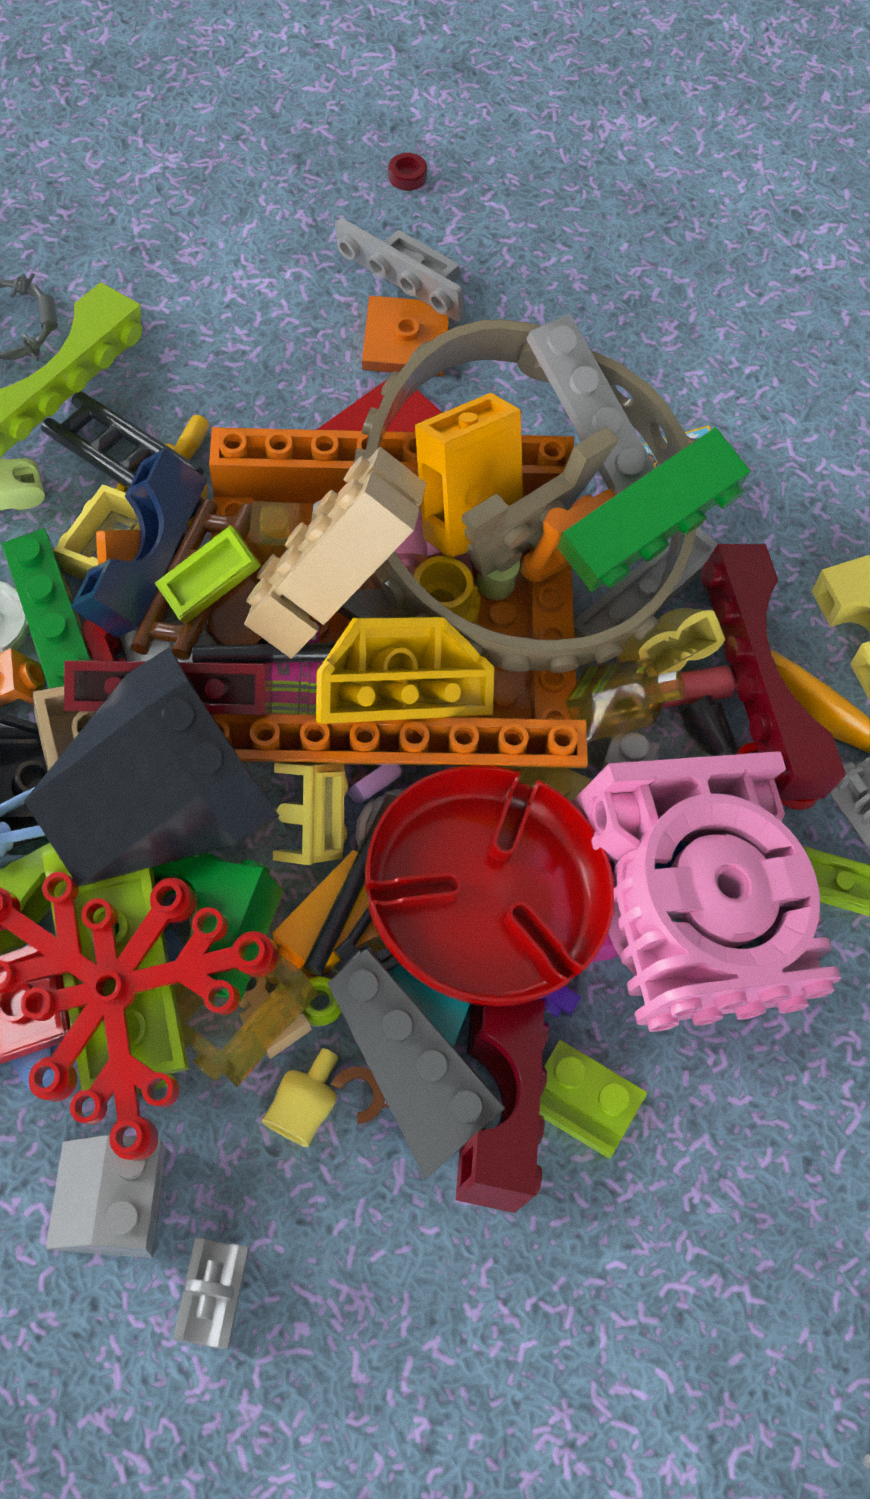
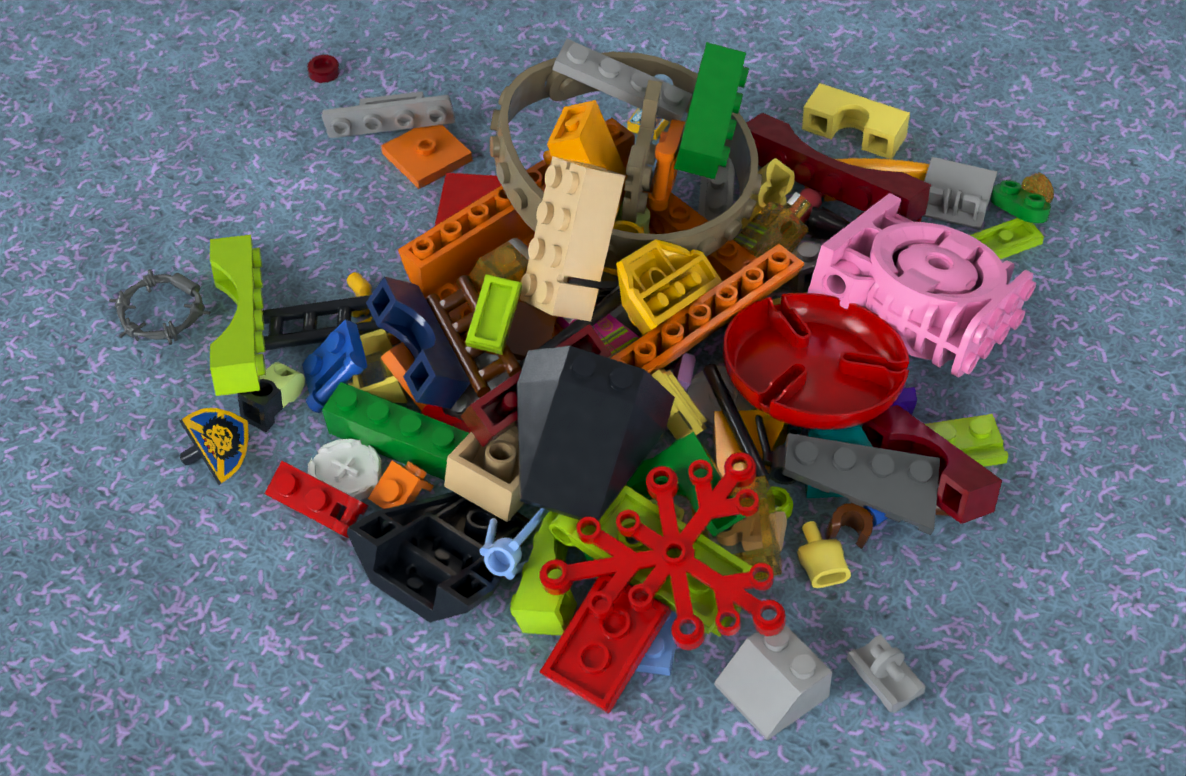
camera: 35 degrees left, 15 degrees down
(70, 501) = (333, 362): none -> blue plate

